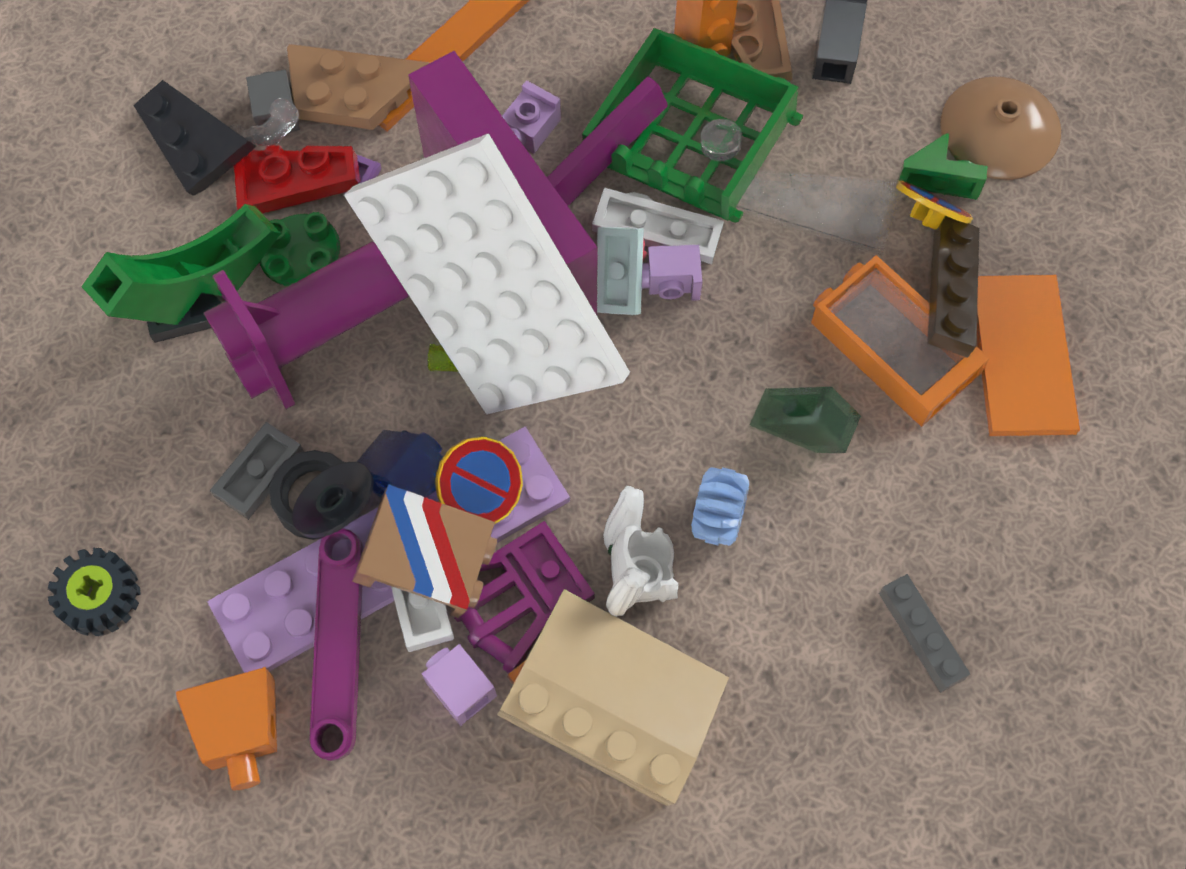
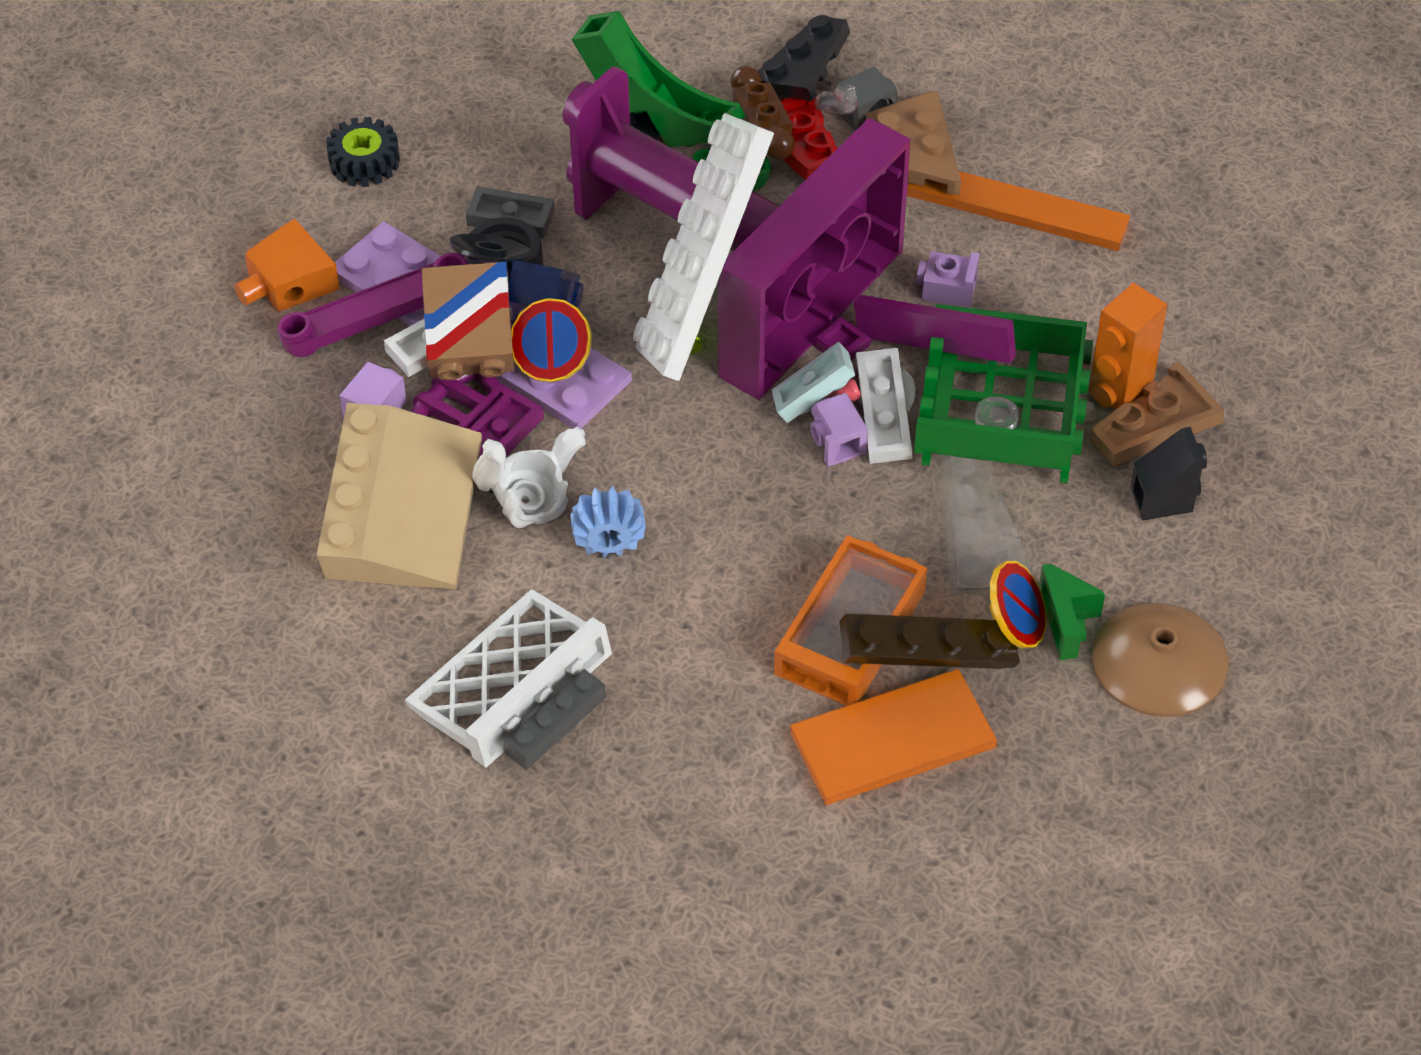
camera: 70 degrees right, 15 degrees down
(265, 189) = (763, 109): none -> reddish brown plate
(808, 417) = (730, 574): clear green slope -> none
(889, 637) = (531, 688): none -> white fence

